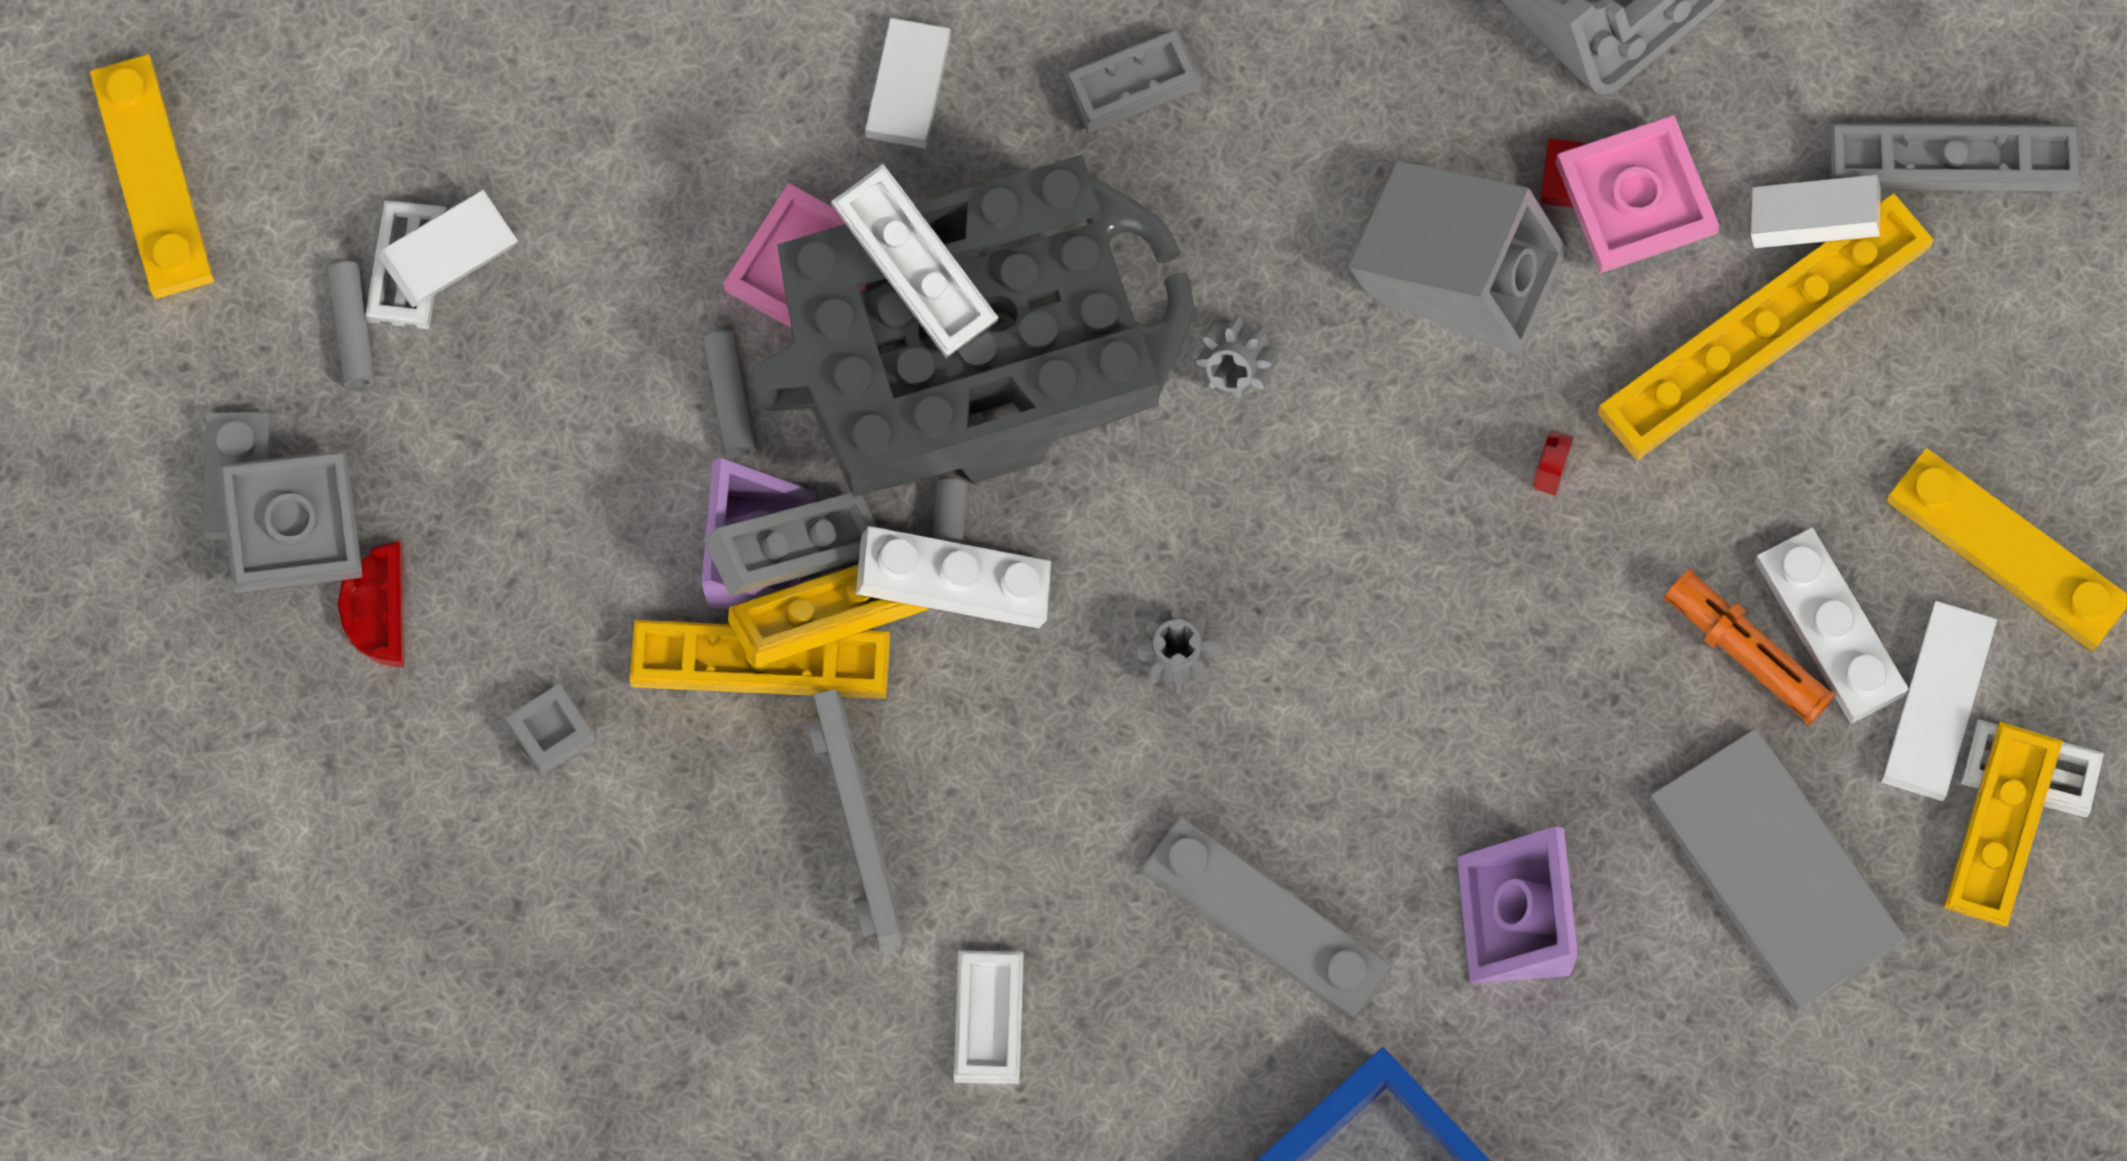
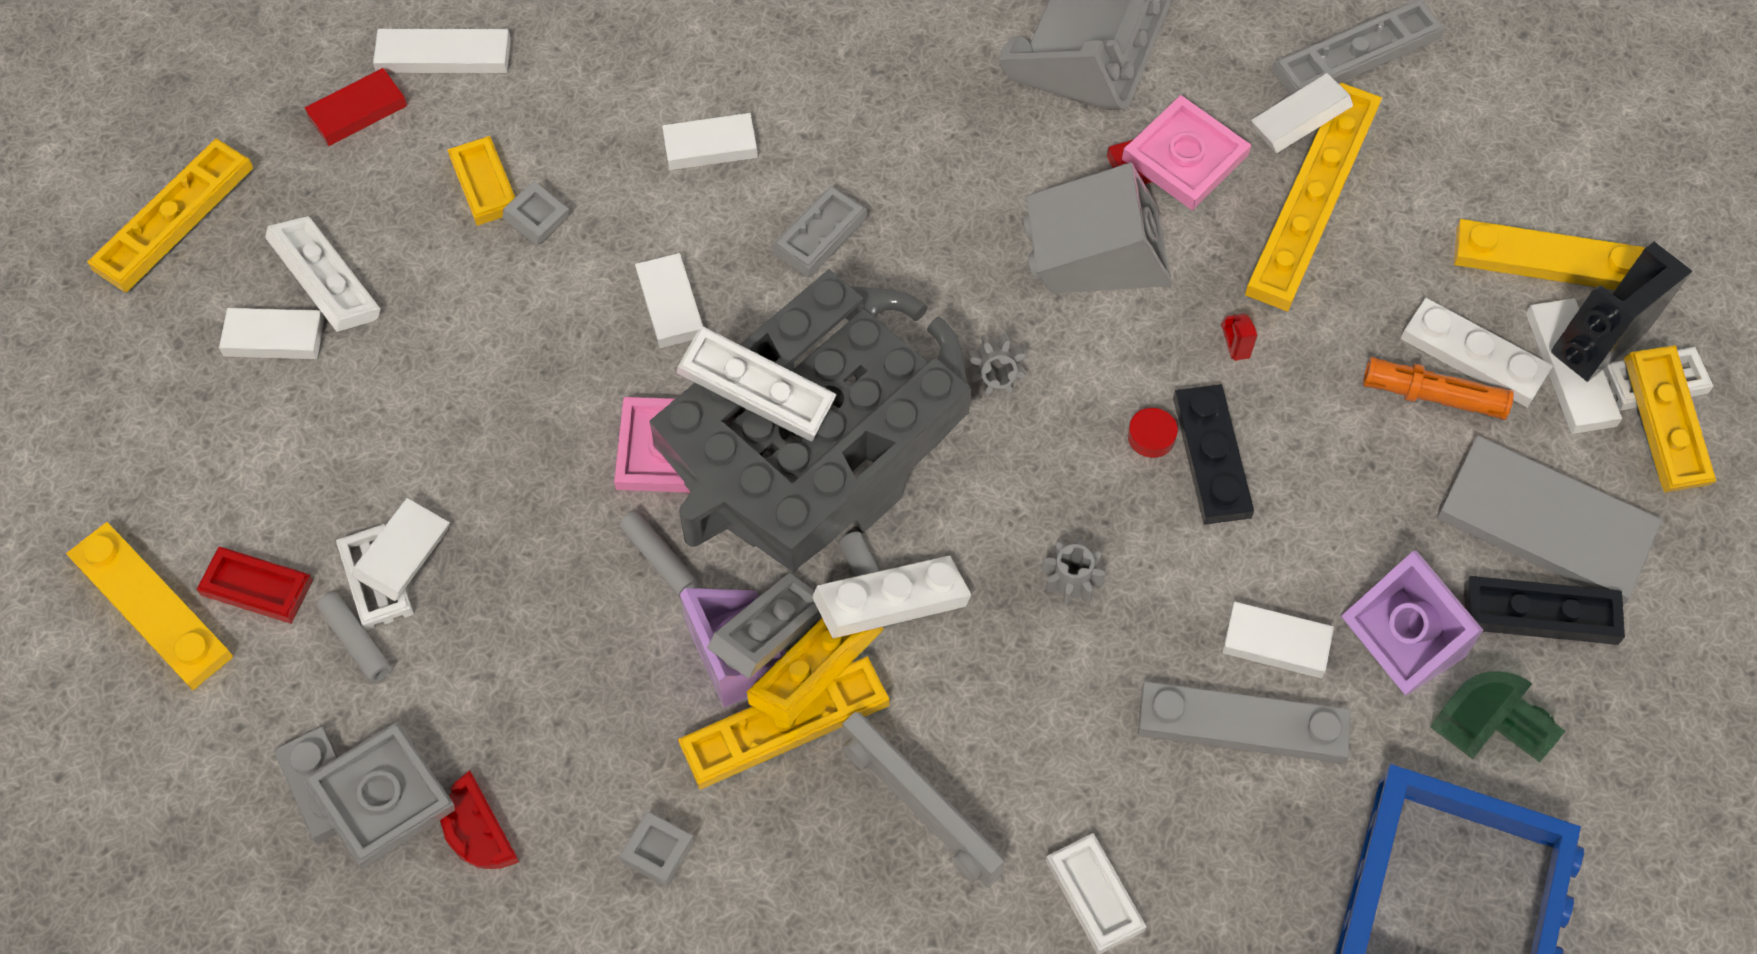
camera: 30 degrees left, 10 degrees down
(274, 208) = (254, 584): none -> red tile
(1364, 846) = (1278, 640): none -> white tile
(1376, 530) = (1152, 432): none -> red tile
(1431, 591) = (1213, 454): none -> black plate
(1545, 1040) = (1493, 704): none -> clear green brick
(1690, 969) = (1546, 610): none -> black plate
(1965, 688) = (1616, 321): none -> black panel

